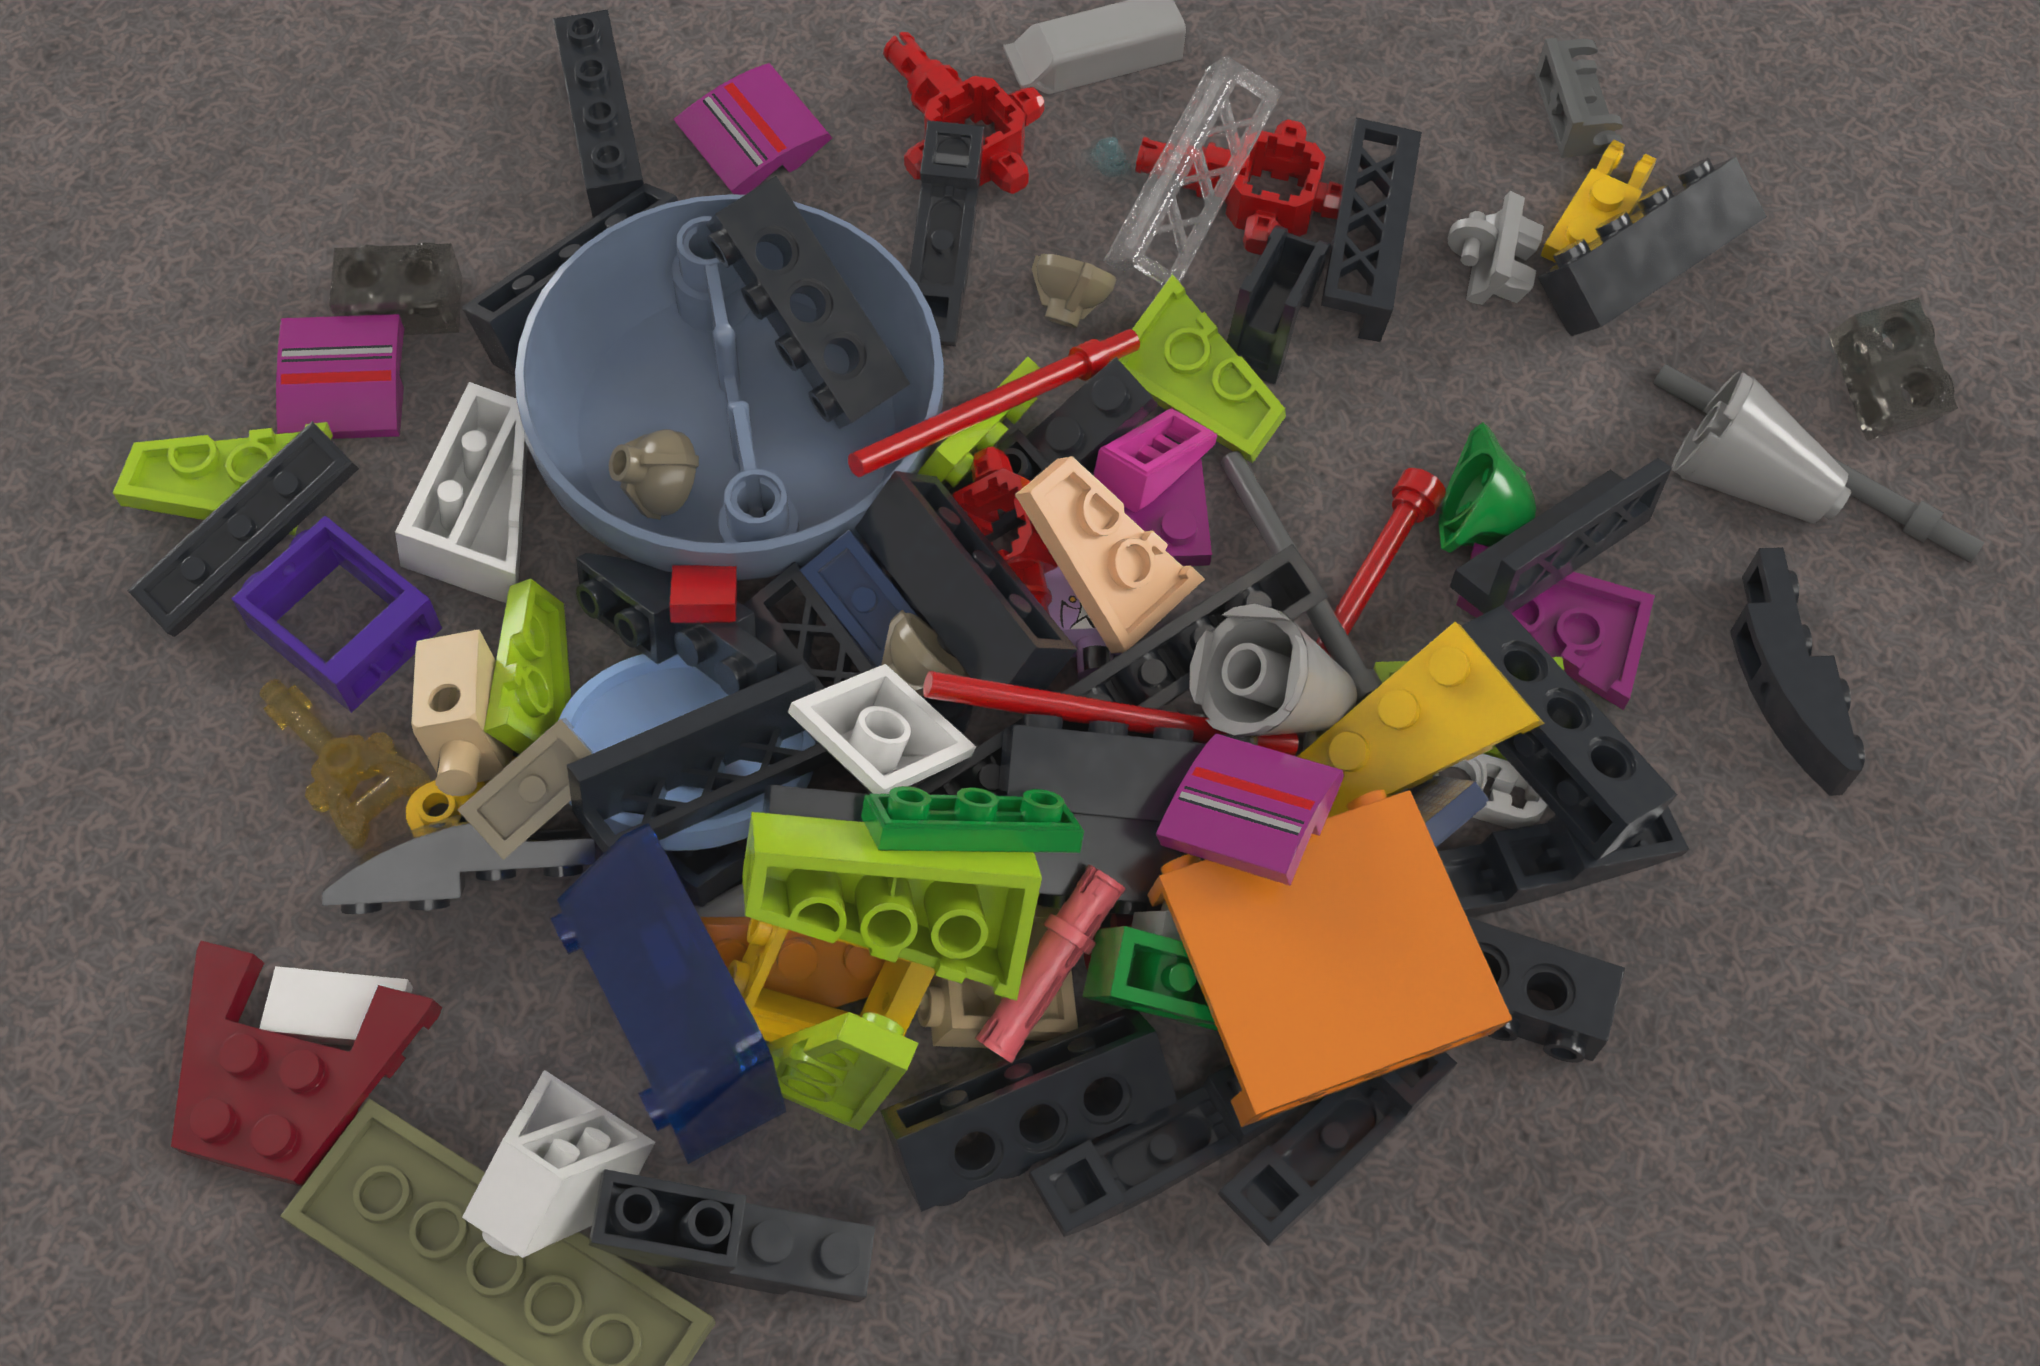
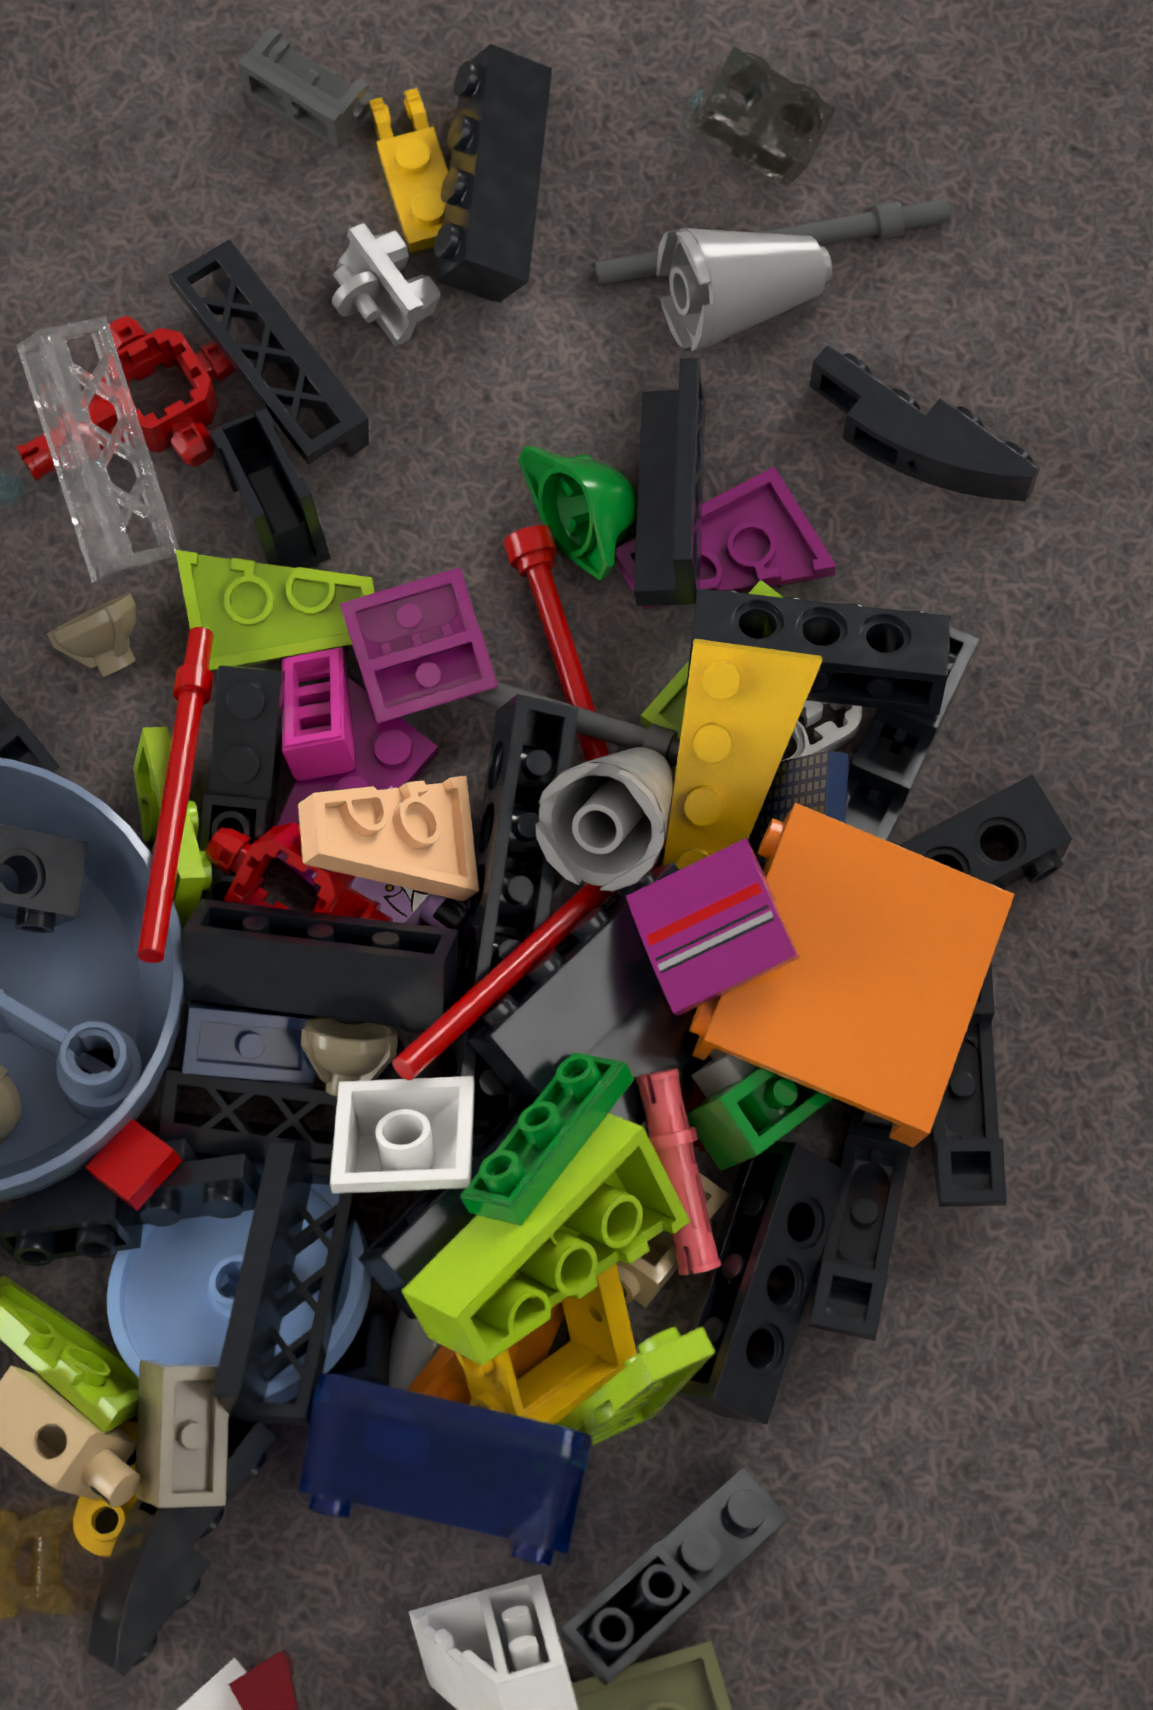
camera: 45 degrees left, 10 degrees up
(1268, 474) = (418, 645): none -> magenta slope

